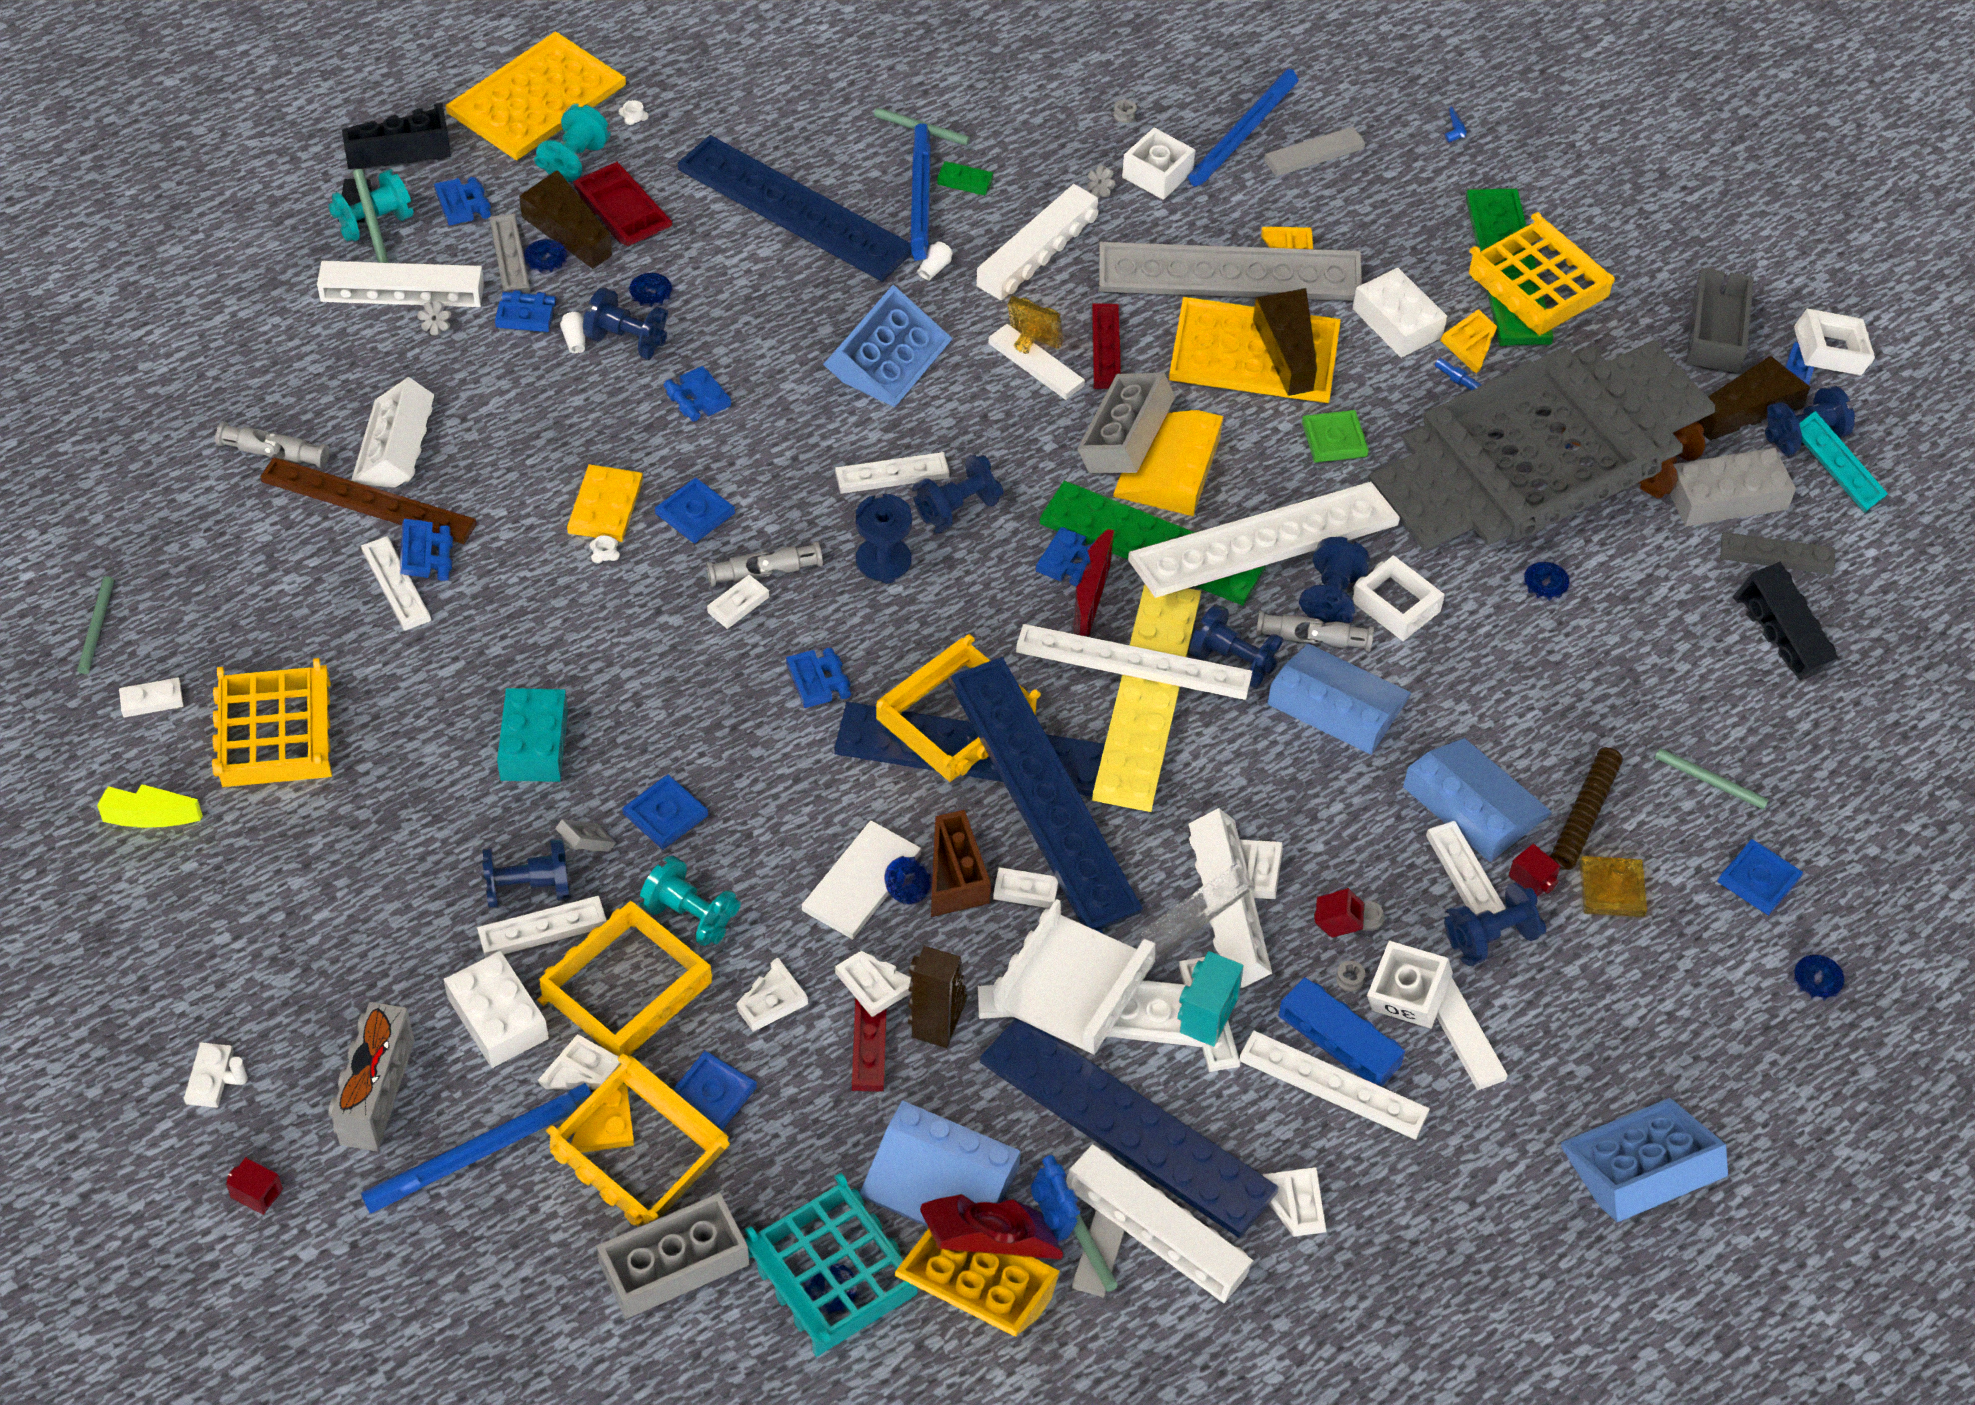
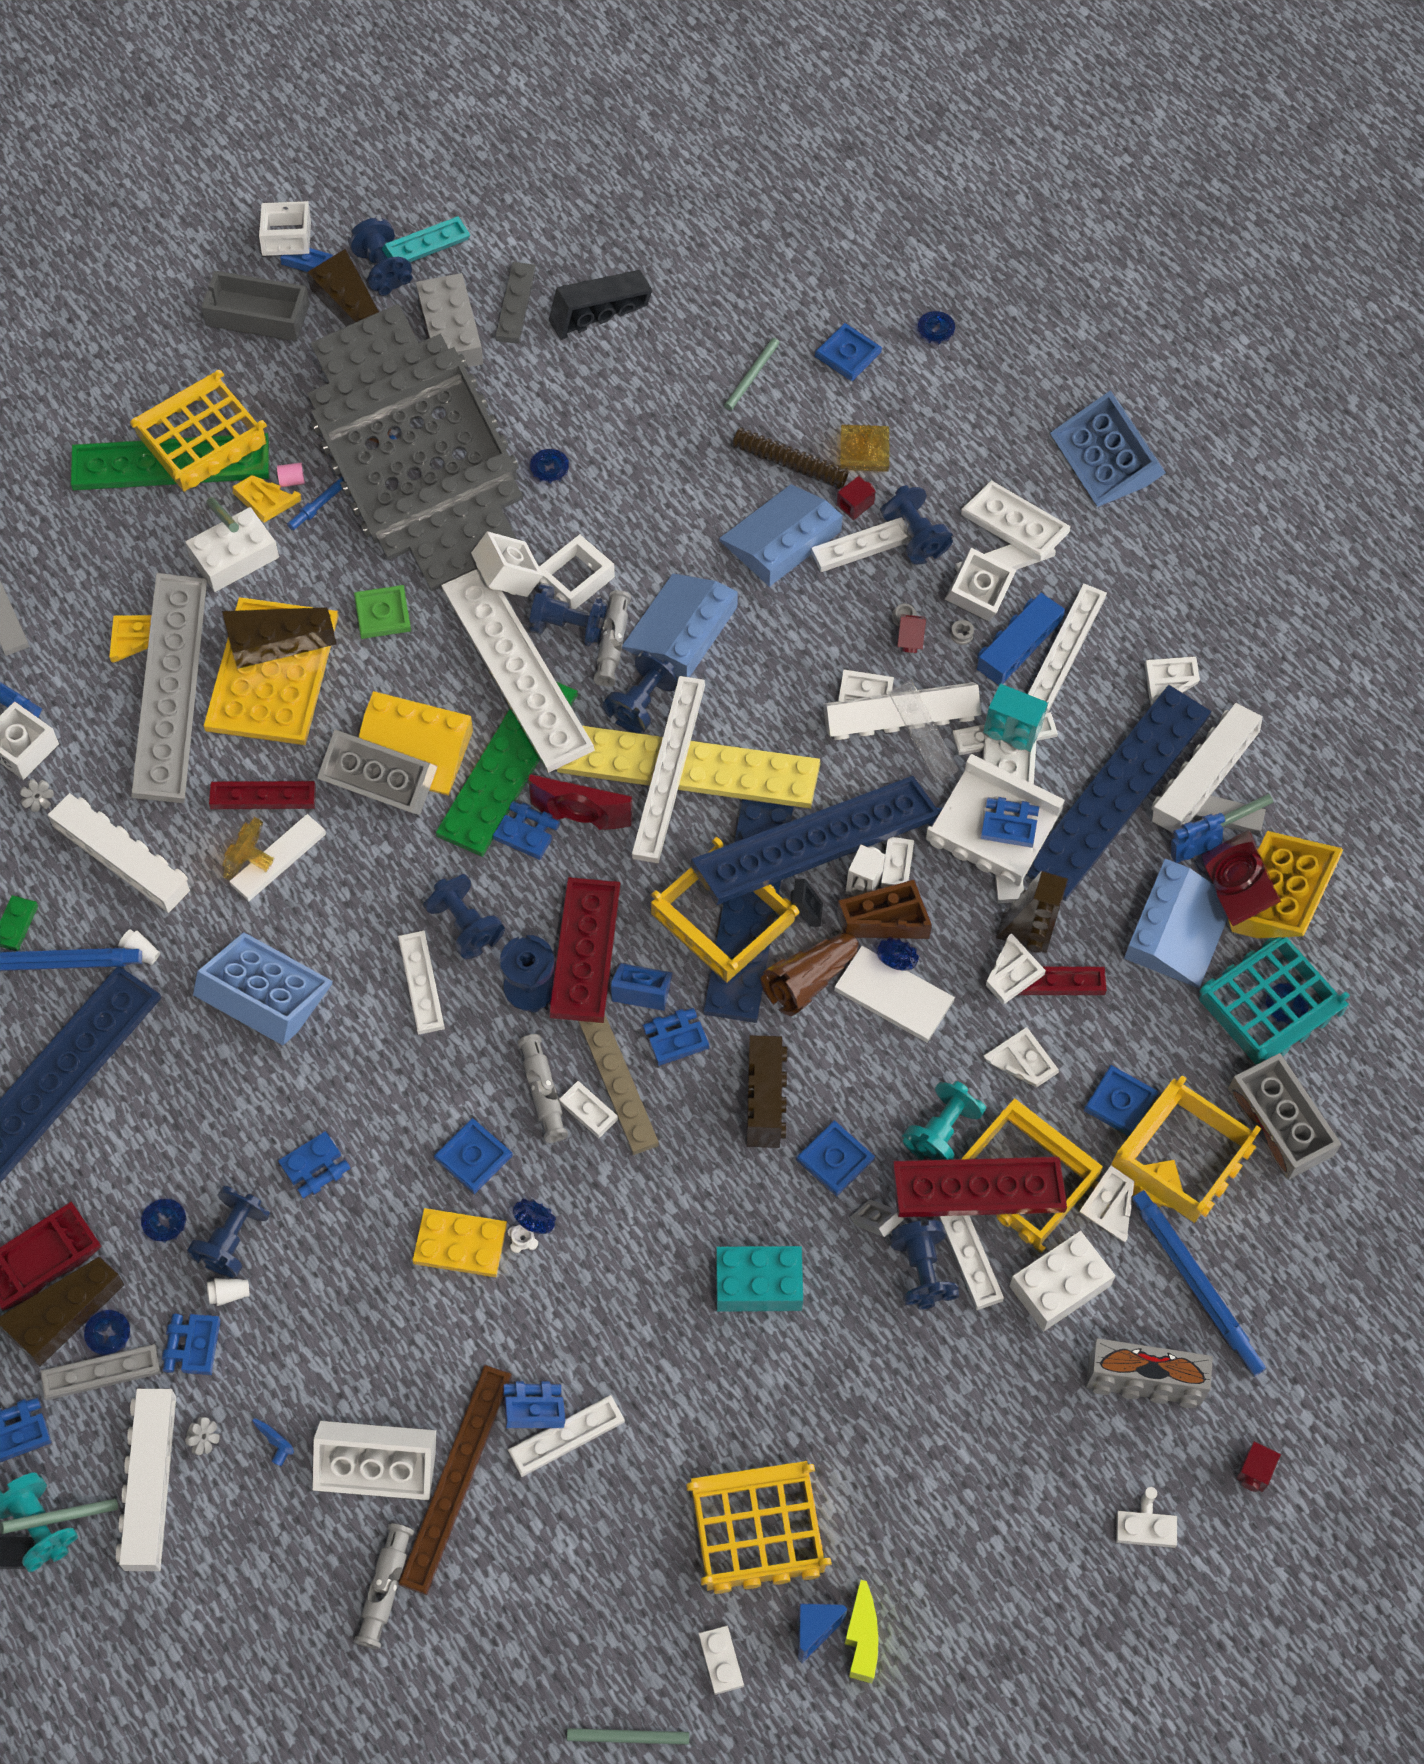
camera: 90 degrees left, 10 degrees up
(156, 755) = (816, 1624): none -> blue slope
(425, 372) = (277, 1440): none -> blue bar
(600, 916) = (979, 1187): none -> dark red plate
(610, 554) = (543, 1221): none -> clear blue gear
(742, 745) = (765, 1091): none -> dark brown wedge
(774, 628) = (619, 1086): none -> dark tan plate
(878, 646) = (641, 986): none -> blue slope
(884, 788) = (807, 972): none -> reddish brown cone
(919, 596) = (585, 950): none -> dark red plate
(968, 787) = (807, 902): none -> black plate
(1004, 842) = (865, 871): none -> white brick
(1061, 987) = (1008, 828): none -> blue plate
(1393, 524) = (506, 564): none -> white brick
(1432, 292) = (222, 514): none -> sand green bar
(1502, 358) = (290, 474): none -> bright pink piece
(1520, 1042) = (1015, 520): none -> white tile

